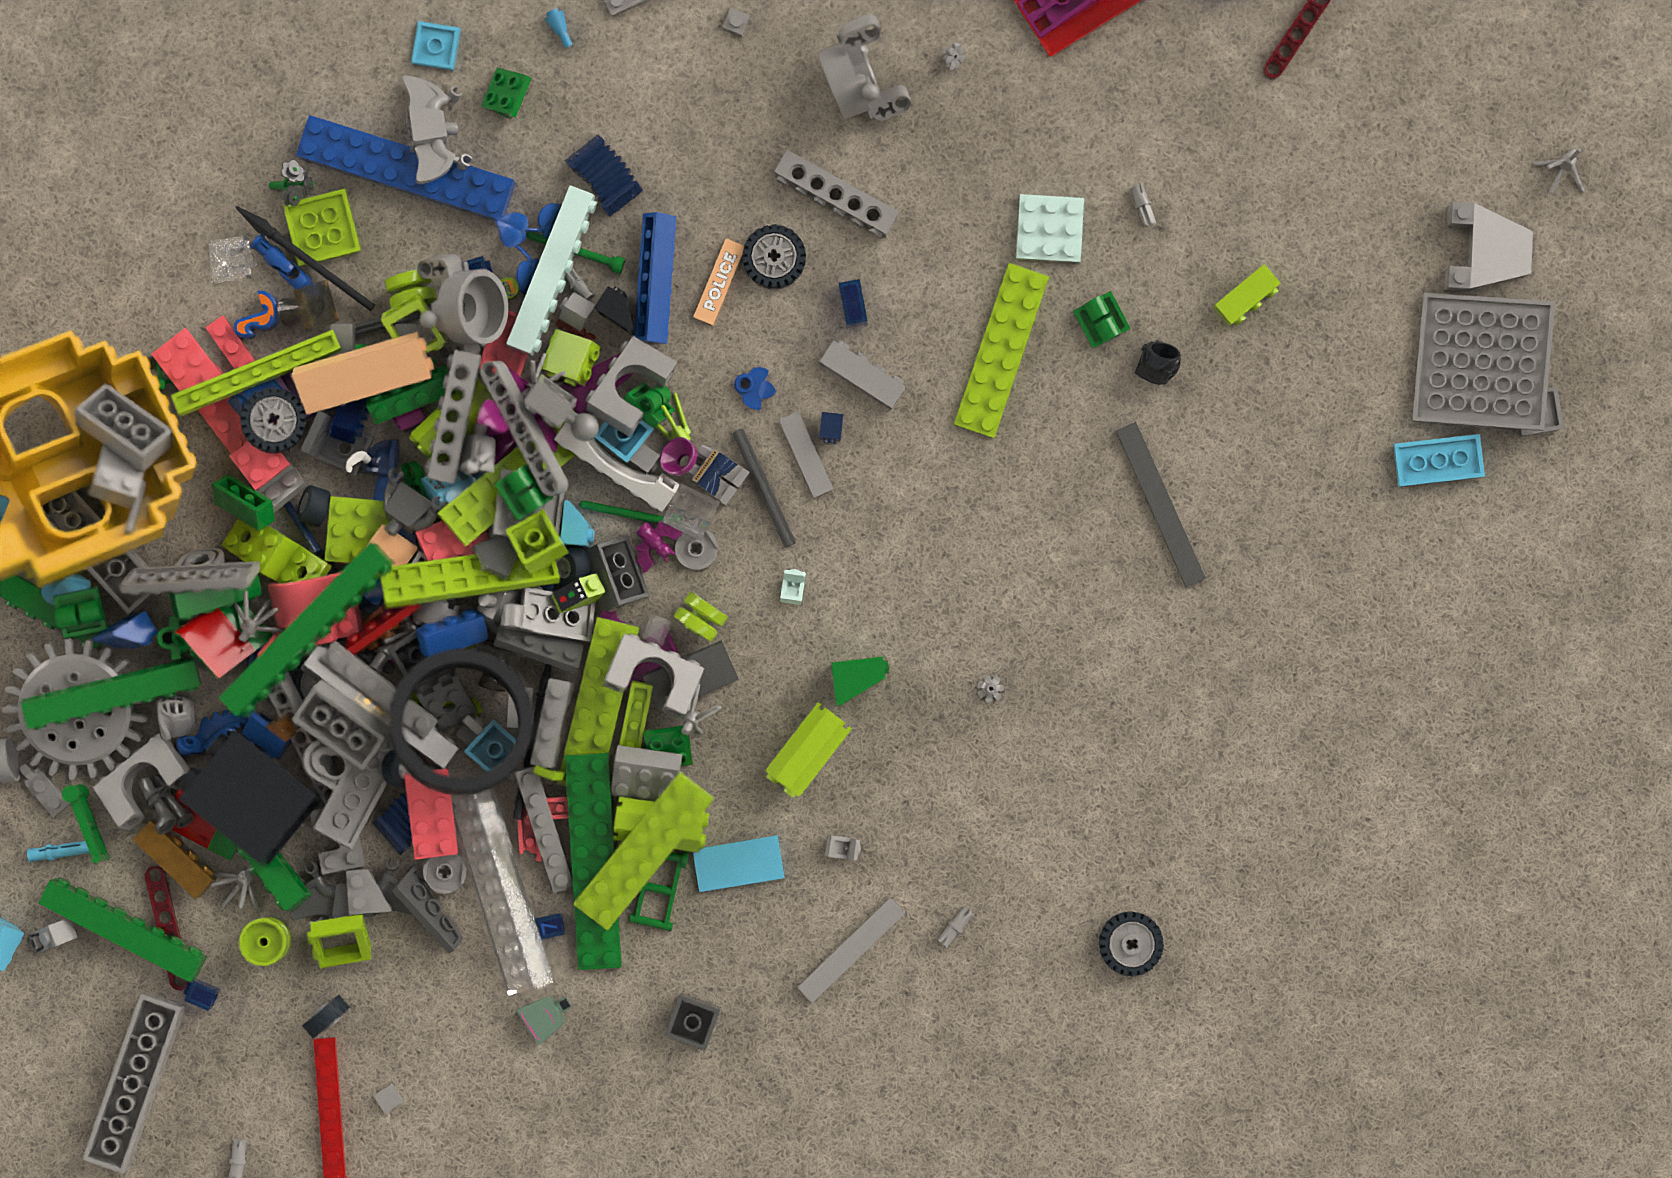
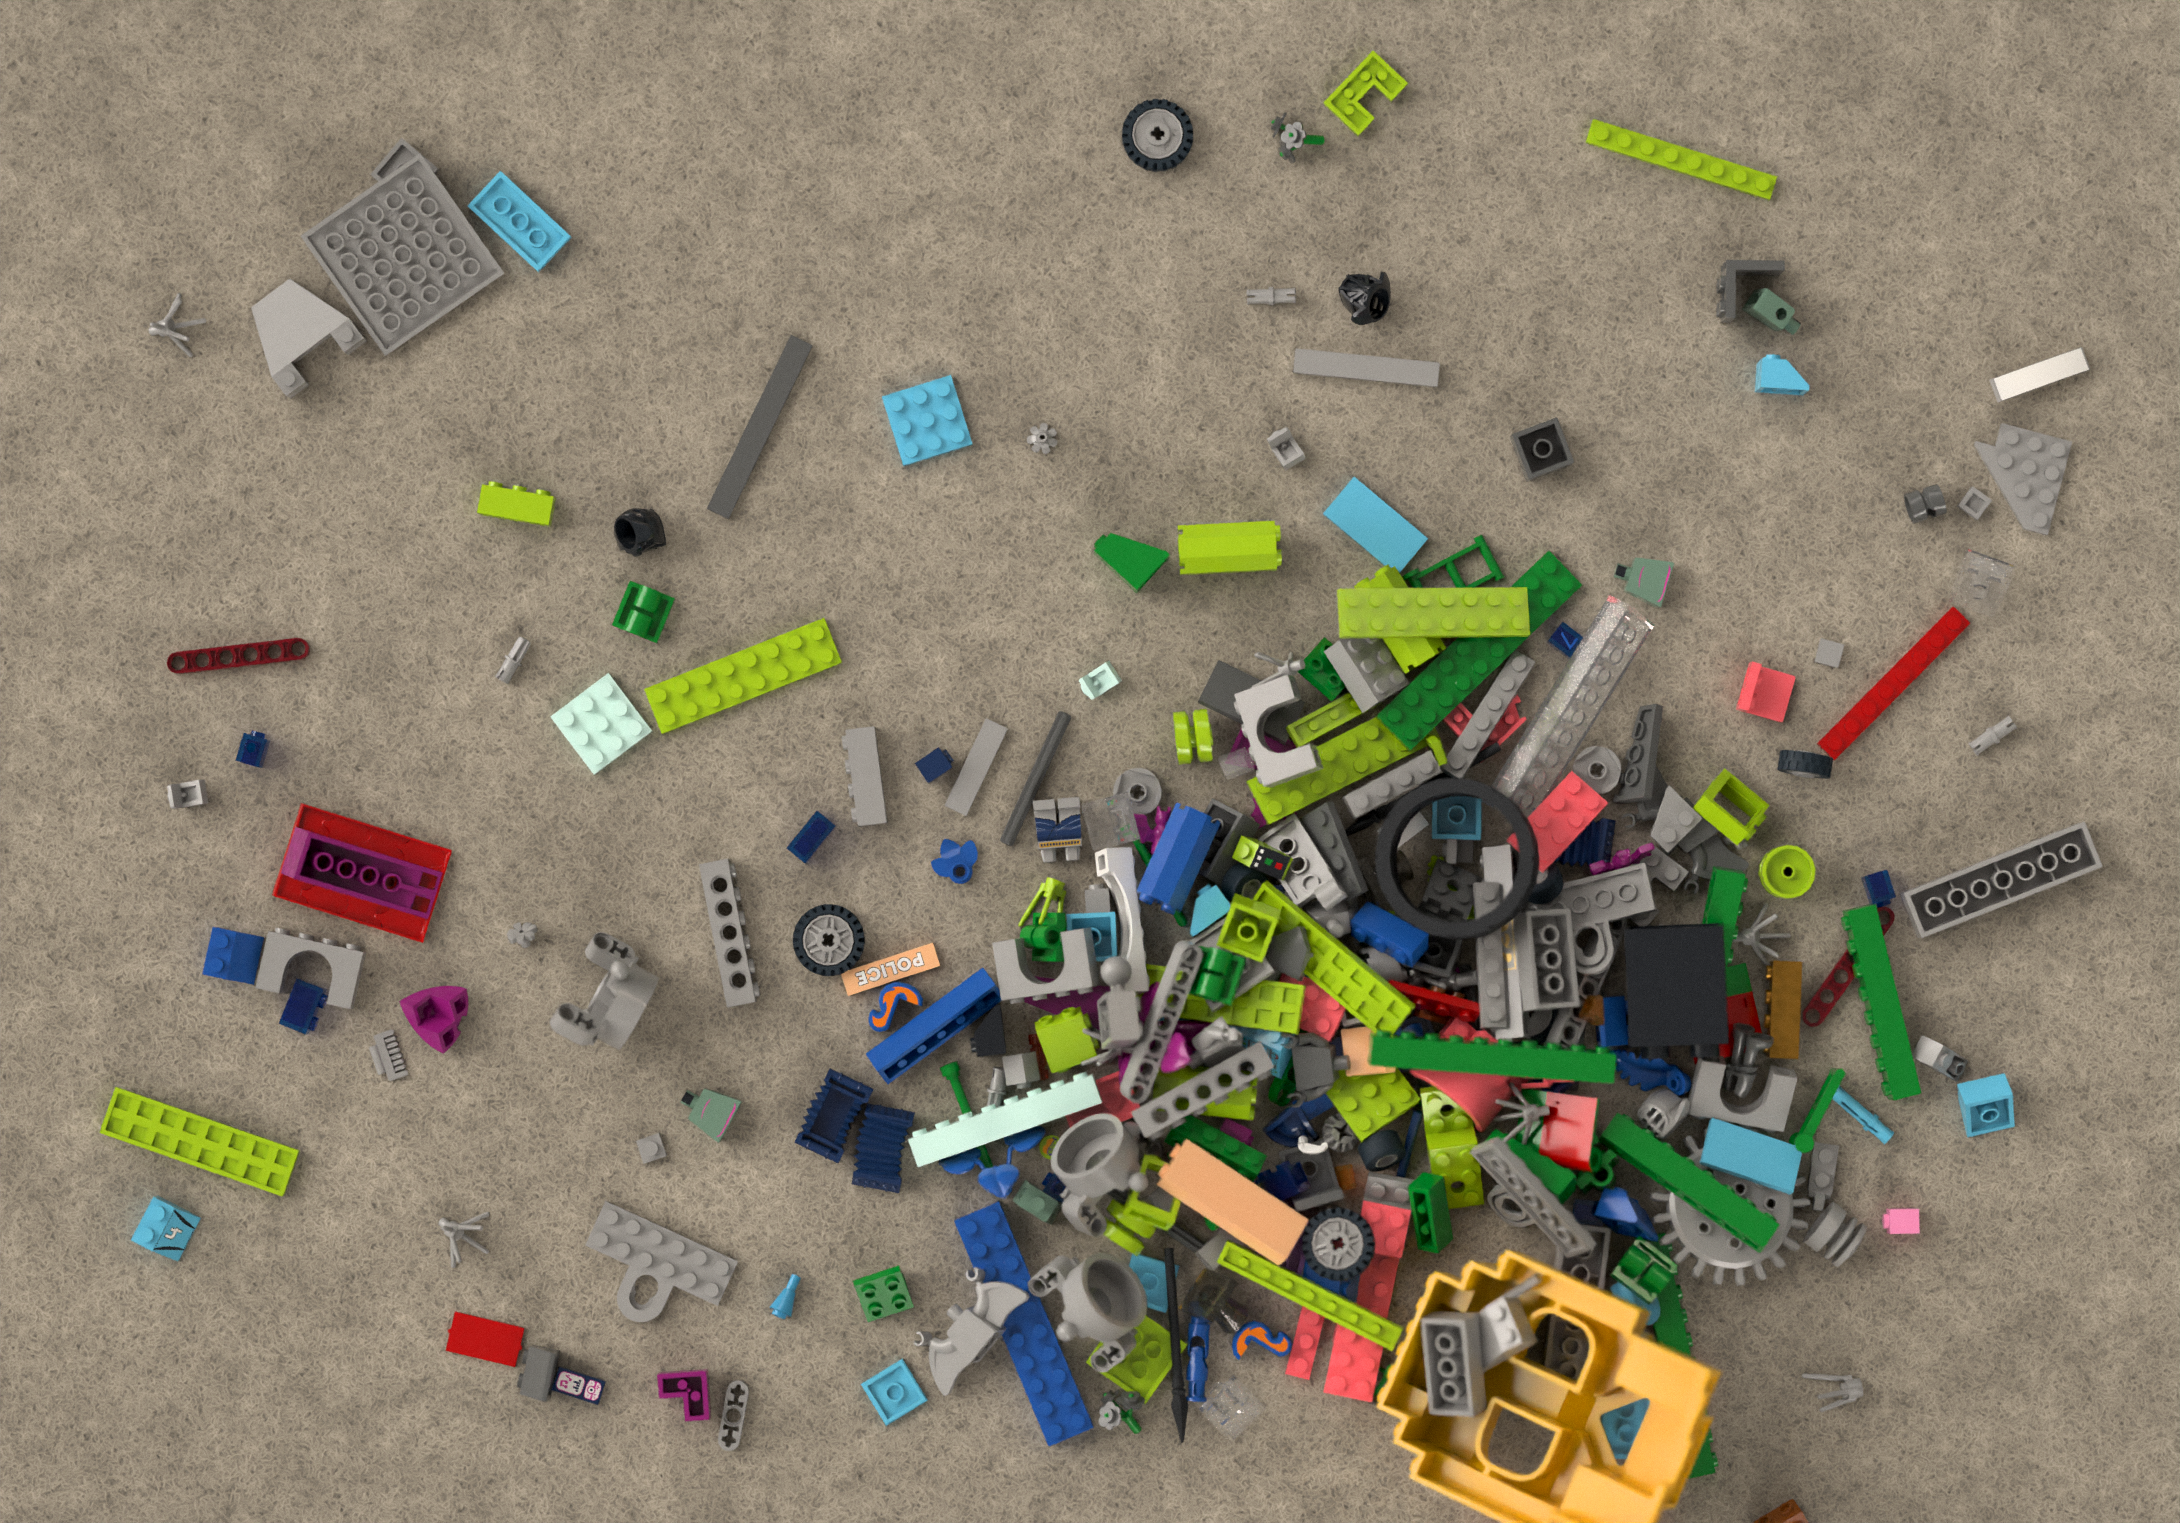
camera: 130 degrees left, 0 degrees up
(95, 750) = (1750, 1156): none -> medium azure tile
(156, 608) = (1585, 1210): none -> clear blue brick
(318, 467) = (1345, 1176): none -> clear orange slope
(353, 481) = (1331, 1135): none -> light grey gear
(362, 274) = (1153, 1278): none -> medium azure tile
(368, 835) = (1622, 859): none -> magenta animal
(369, 245) = (1113, 1288): none -> light grey piece
(399, 1031) = (1765, 692): none -> coral bracket
(479, 245) = (1037, 1202): none -> sand green torso
(626, 534) = (1177, 859): none -> blue brick
(655, 159) = (831, 1115): none -> dark blue piece
(674, 452) = (1074, 880): magenta piece -> none
(698, 261) = (888, 1003): none -> blue animal
(726, 81) = (711, 1111): none -> sand green torso
(903, 986) = (1359, 296): none -> black piece
(1050, 1034) = (1293, 137): none -> dark grey plant
(1050, 1126) = (1345, 99): none -> lime plate
(1069, 621) = (927, 420): none -> medium azure plate

